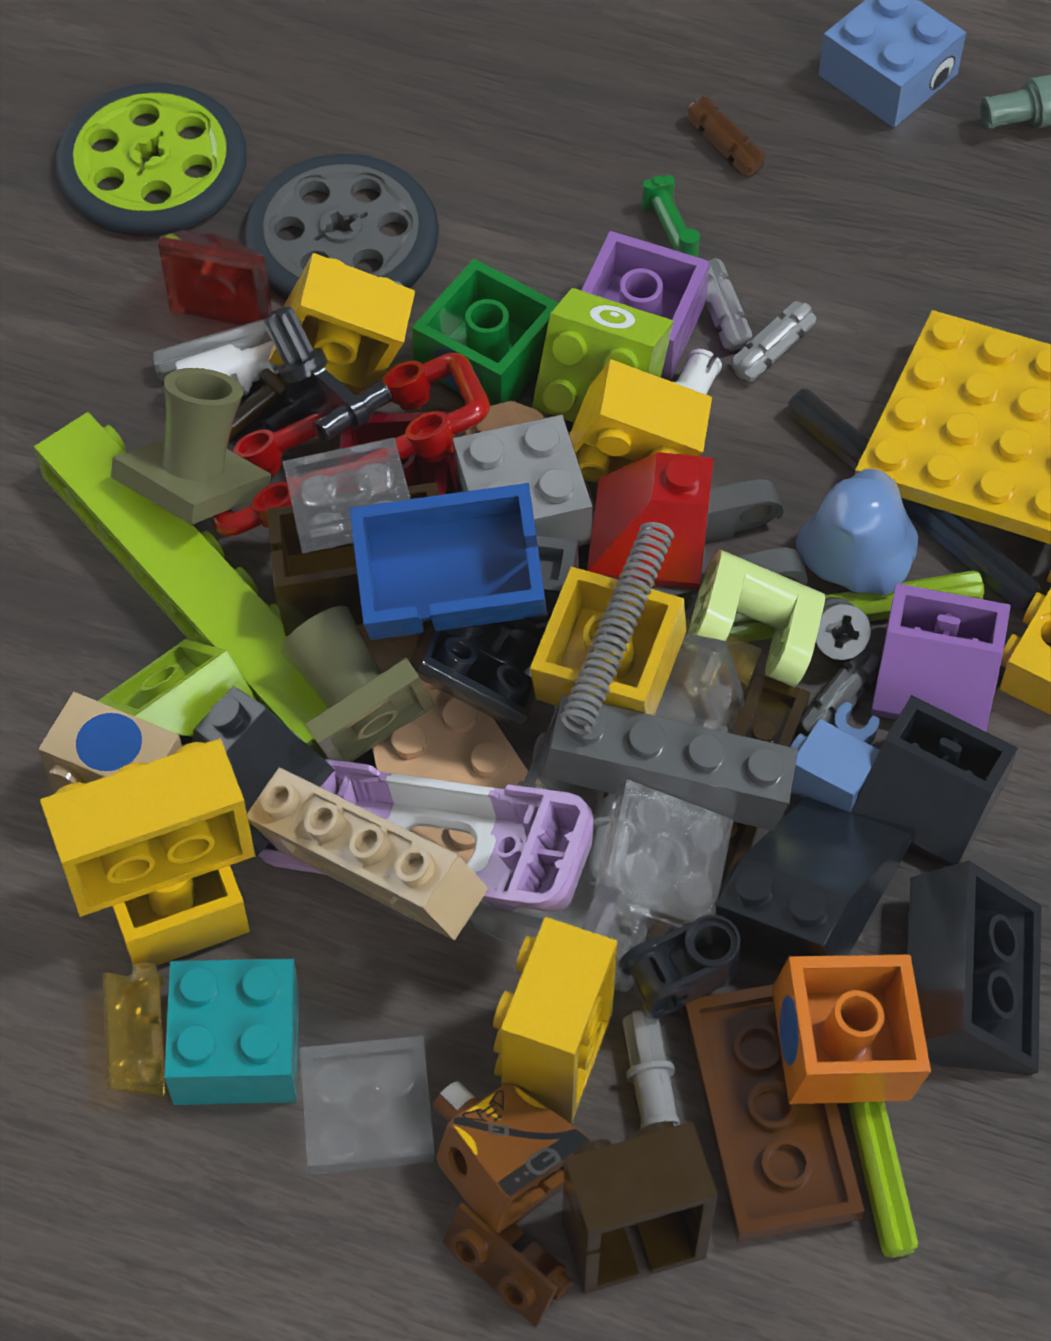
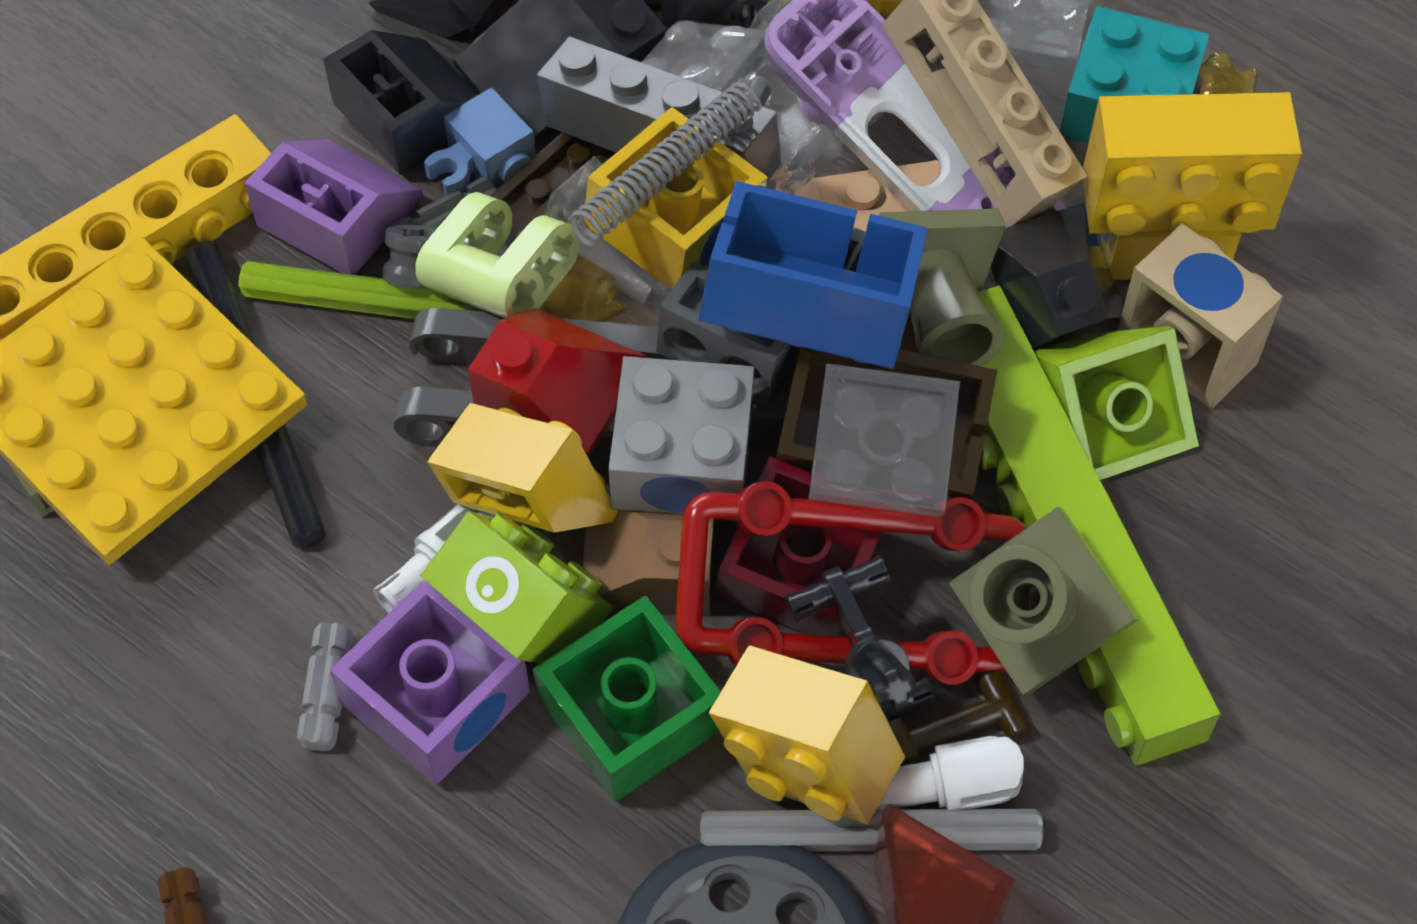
camera: 160 degrees left, 0 degrees up
(659, 196) = (335, 763): green piece -> none
(773, 341) = (293, 617): light grey axle -> none
(860, 535) = (346, 323): medium blue piece -> none

